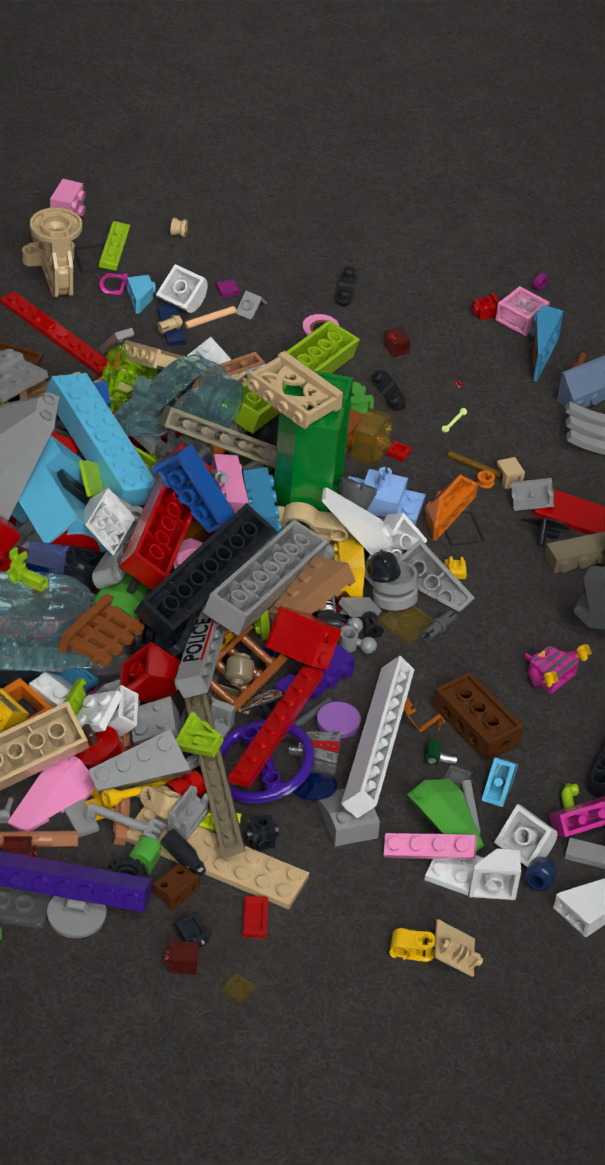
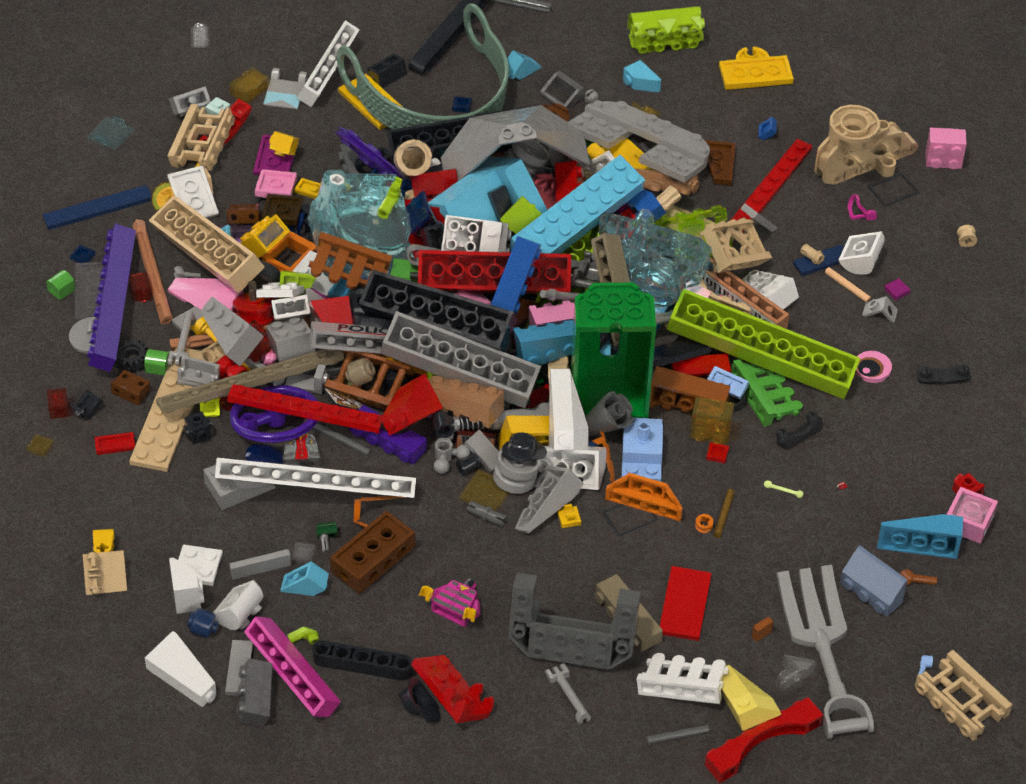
camera: 80 degrees right, 5 degrees up
(114, 245) = (916, 198): lime tile -> none
(140, 291) = (850, 225): medium azure slope -> none
(183, 851) = (158, 379): black piece -> none
(198, 737) = (273, 359): lime wing -> none
(294, 374) = (609, 306): tan fence -> none
(339, 718) = (345, 457): medium lavender tile -> none
(396, 342) = (874, 424): clear red brick -> none
(430, 846) = (207, 538): bright pink plate -> none
(445, 808) = (251, 536): bright green wedge -> none
(511, 471) = (716, 538): tan panel -> none
(532, 494) = (688, 558): light grey hinge -> none
(544, 531) = (649, 575): black shield -> none

